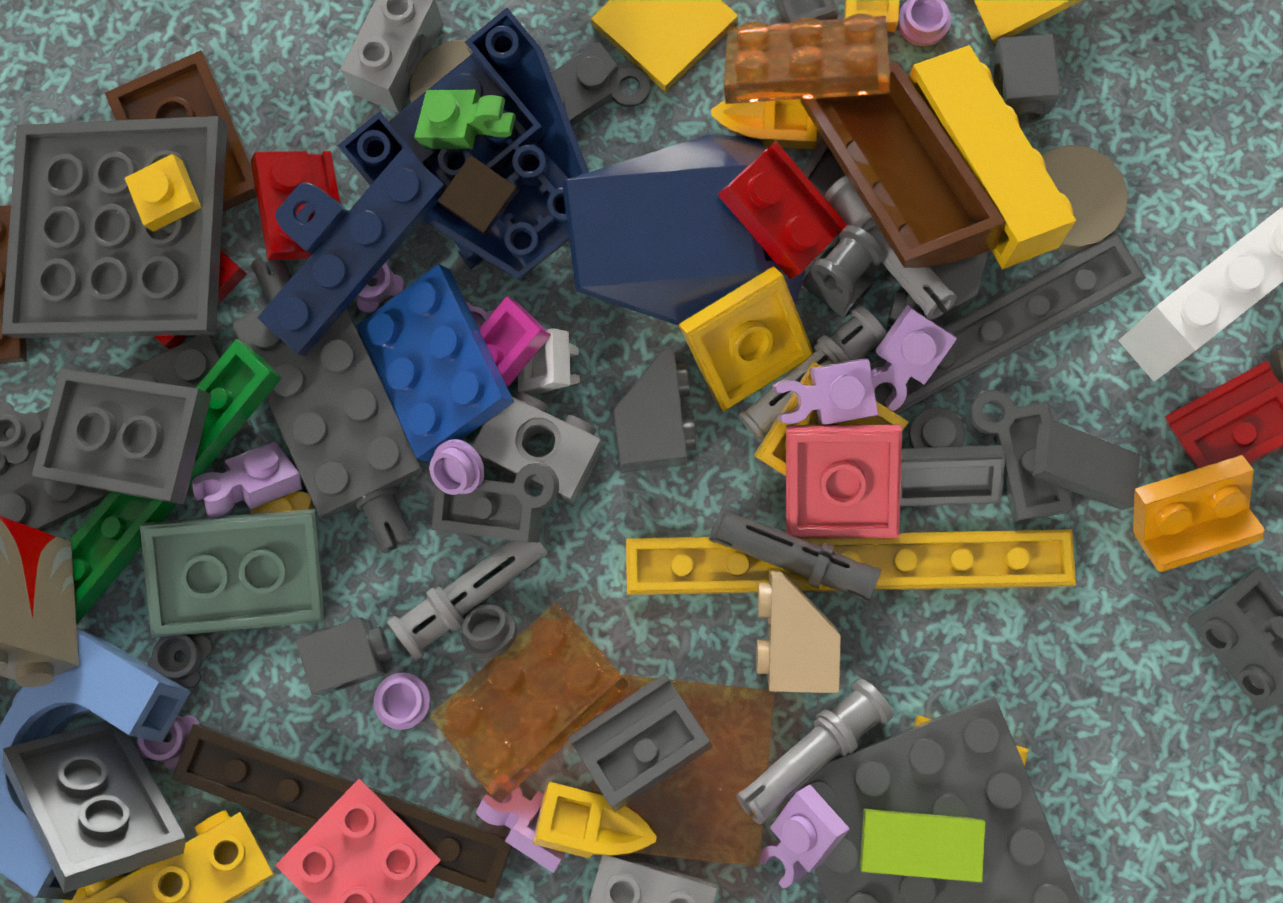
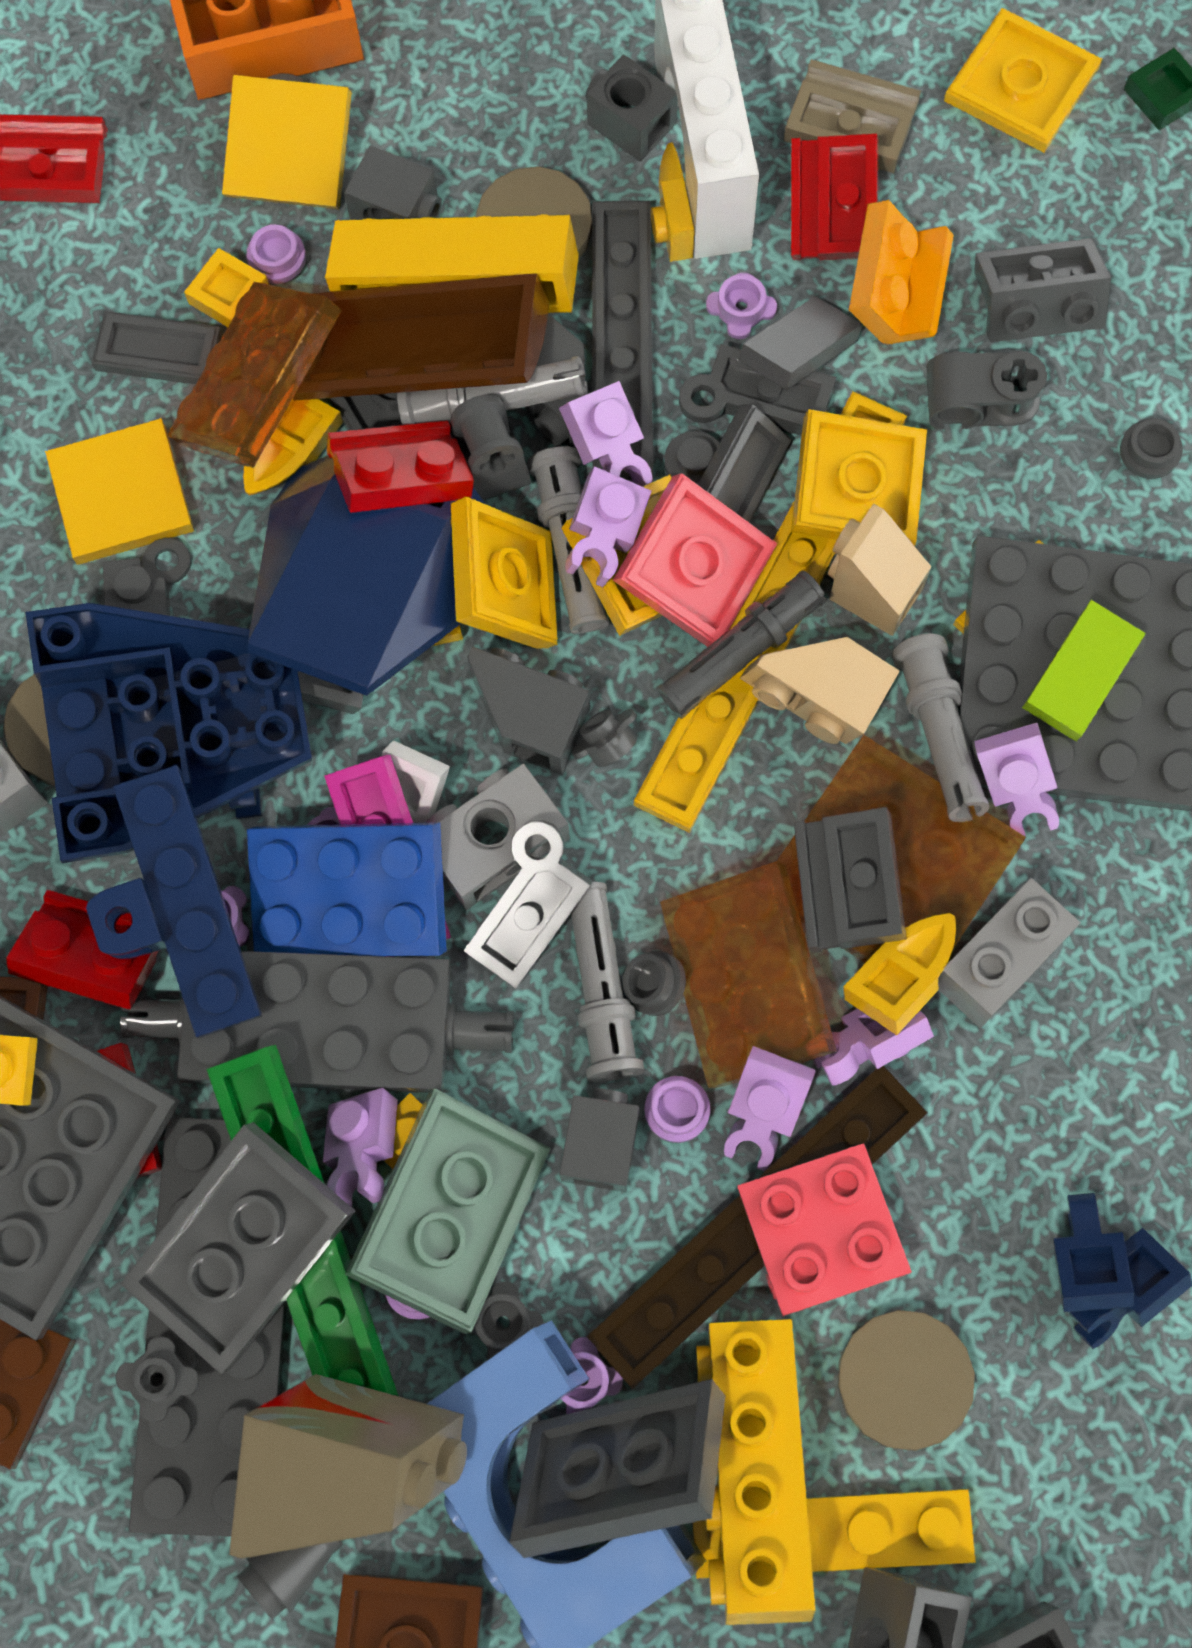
camera: 65 degrees left, 5 degrees down
(433, 768) = (768, 1102): none -> lavender plate
(456, 116) = (107, 726): bright green plate -> none
(456, 467) = (472, 916): lavender plate -> none
(478, 195) = (207, 741): dark brown tile -> none
(664, 490) = (606, 737): none -> dark grey plate
(916, 631) = (877, 570): none -> tan slope
(992, 575) = (850, 466): none -> yellow tile
(1112, 396) = (745, 289): none -> lavender plate
(1132, 632) = (980, 388): none -> dark grey piece
(1137, 302) = (673, 218): none -> yellow plate
(1166, 804) = (1151, 448): none -> dark grey plate
(1201, 230) = (635, 128): none -> dark grey brick

